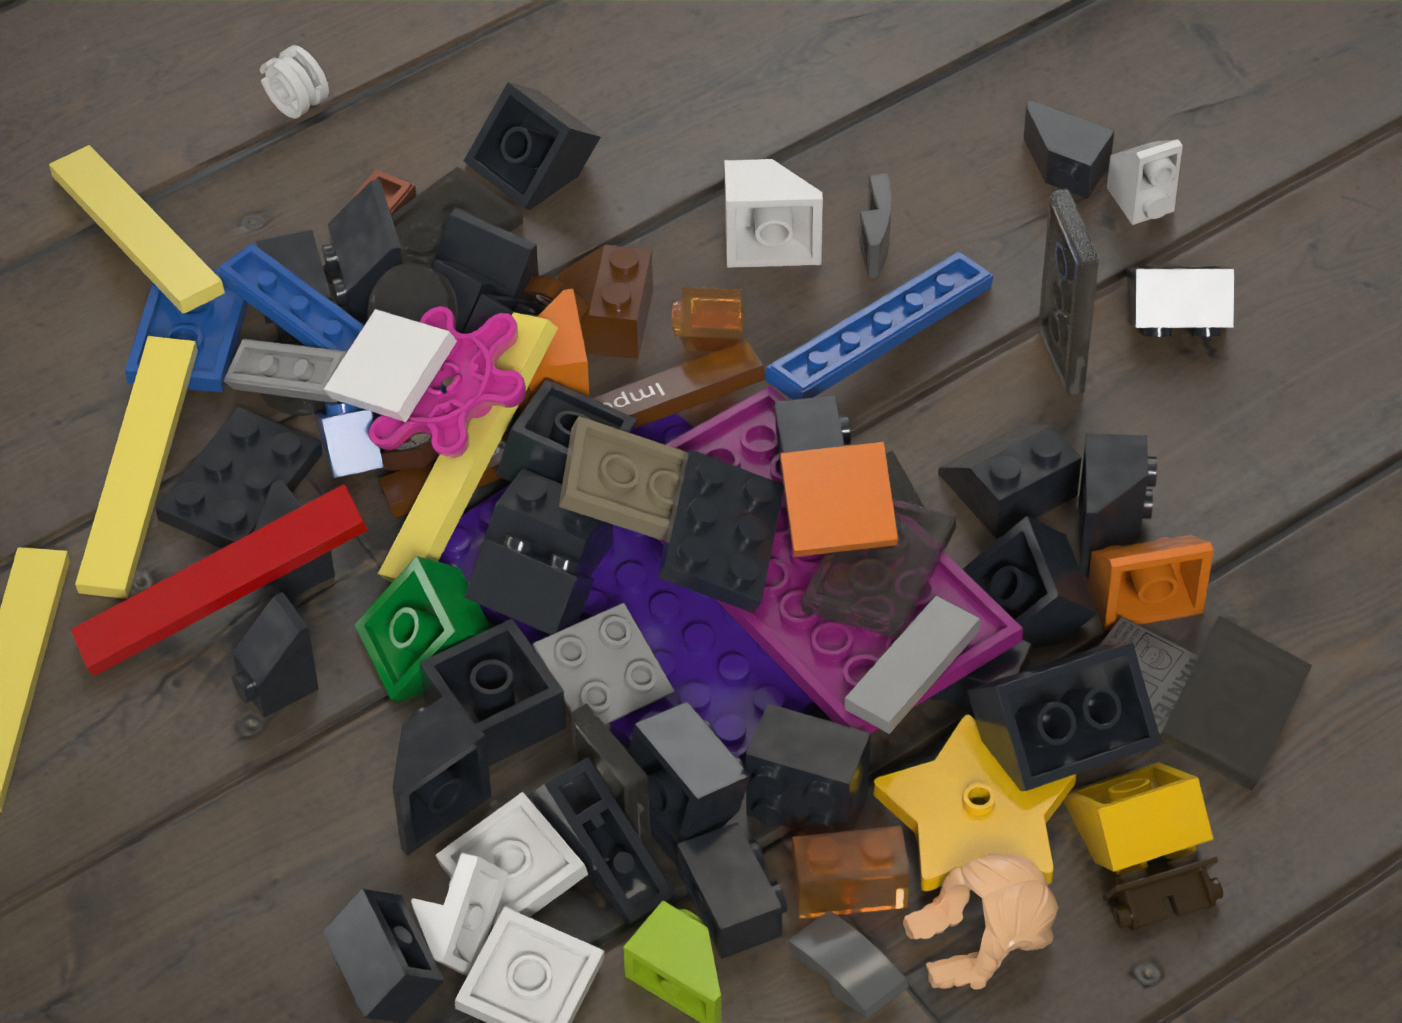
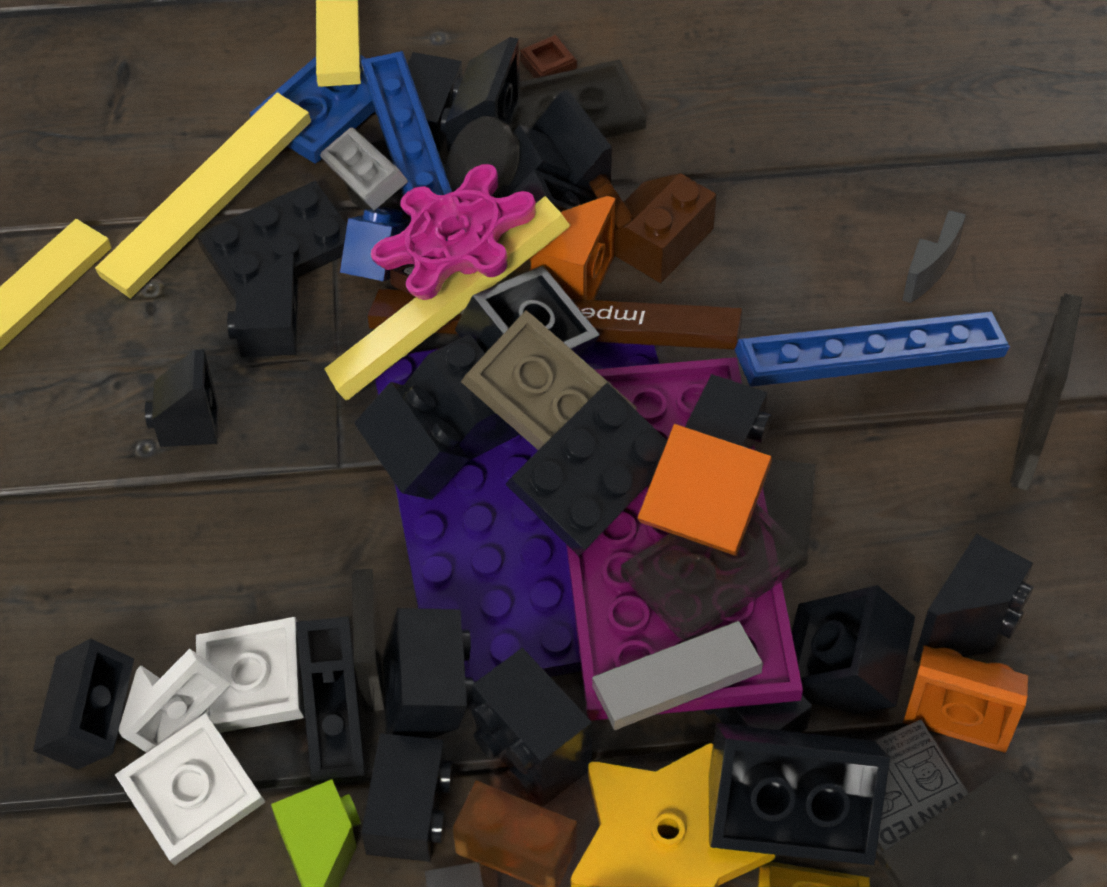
camera: 30 degrees right, 5 degrees up
(218, 580) = (190, 315): red tile -> none
(390, 365) = (421, 197): white tile -> none
(416, 620) = (317, 438): green slope -> none
(438, 772) = (227, 565): black slope -> none
(499, 688) = (328, 519): black brick -> none
(530, 146) = (688, 66): black slope -> none
(605, 665) = (427, 542): light grey hinge -> none
(709, 318) = (725, 276): clear orange brick -> none
(770, 216) = (835, 207): white slope -> none
(1015, 476) = (906, 539): black slope -> none

